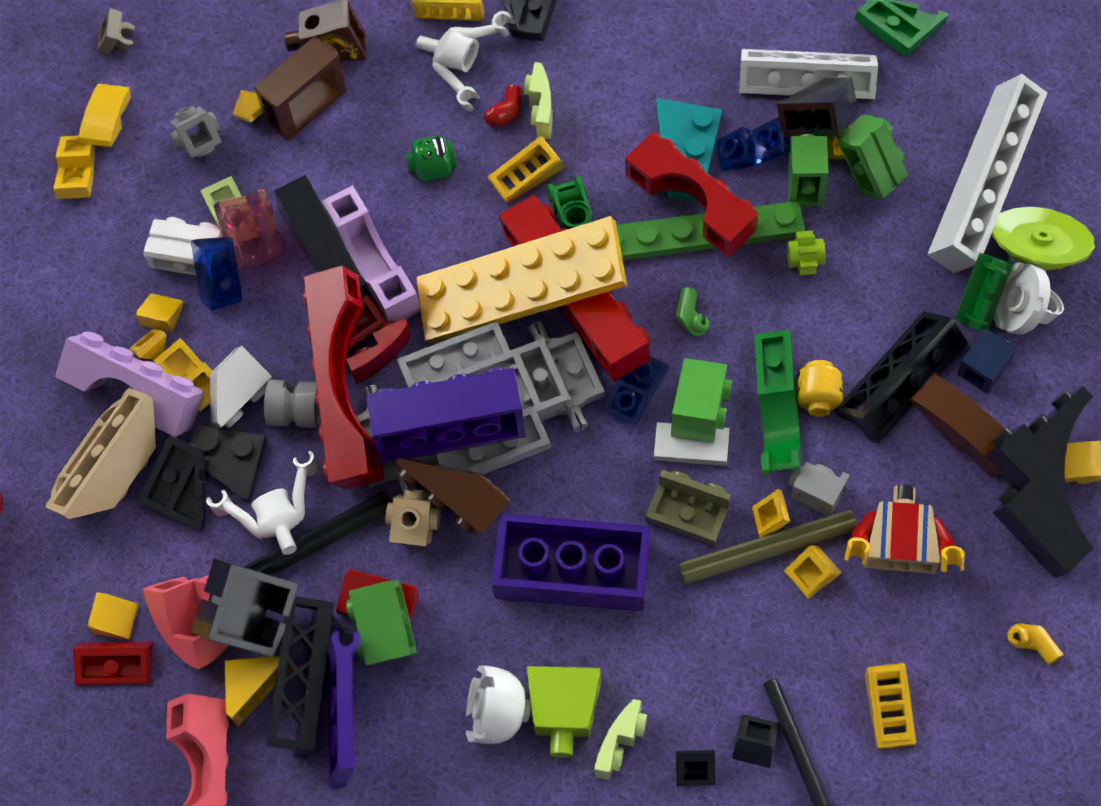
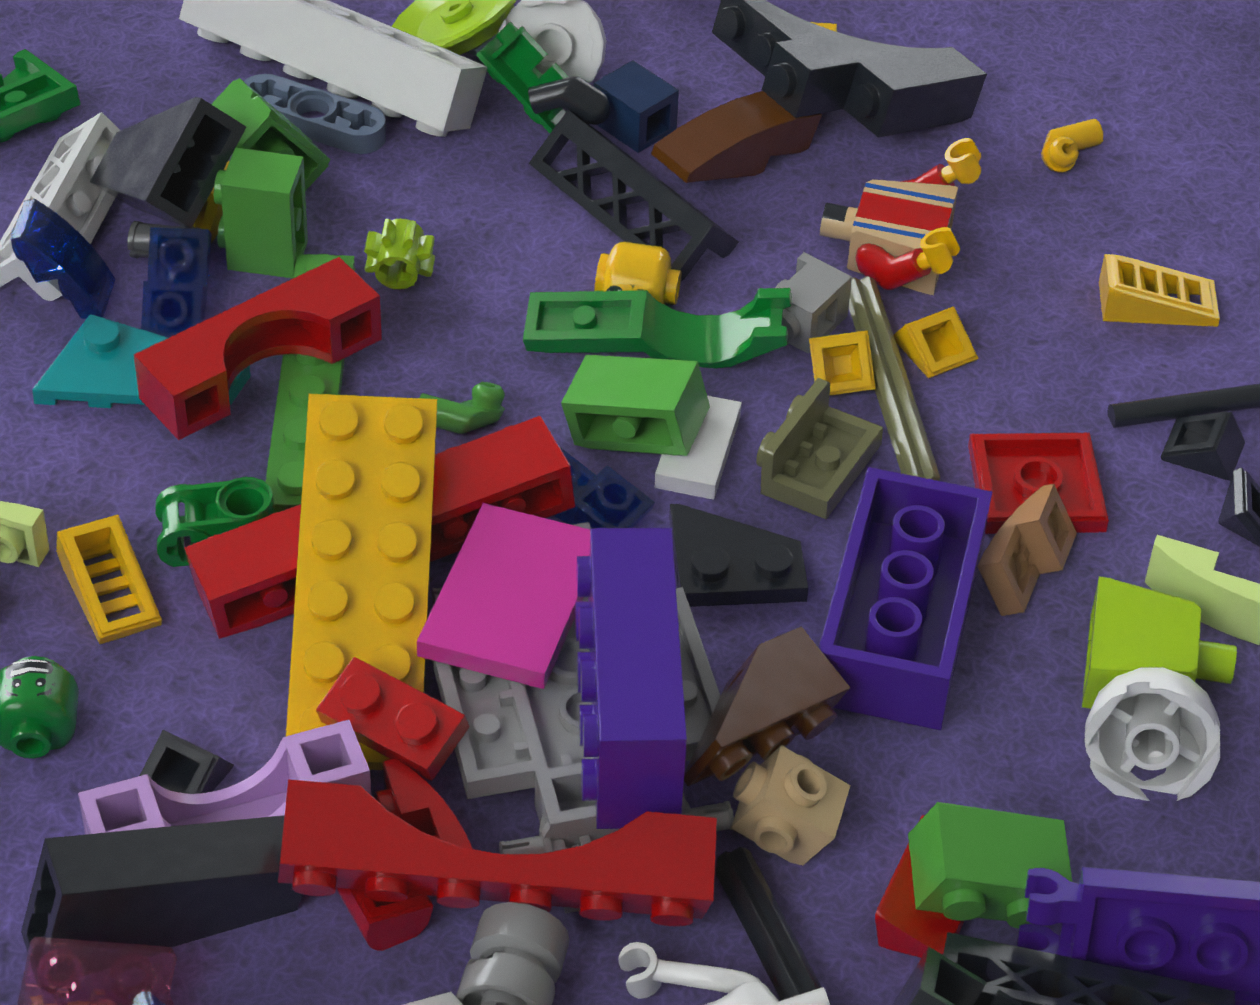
camera: 90 degrees left, 20 degrees down
(408, 236) = (184, 766): none -> black slope
(428, 315) = (394, 718): none -> red plate
(538, 351) = (507, 597): none -> dark pink tile
(601, 474) = (734, 562): none -> black wing
(622, 626) = (1026, 545): none -> medium nougat slope
(701, 640) = (1023, 462): none -> red tile
(745, 81) = (58, 251): none -> clear blue slope
(929, 169) = (345, 126): none -> sand blue beam
(966, 319) = (572, 95): none -> black arm

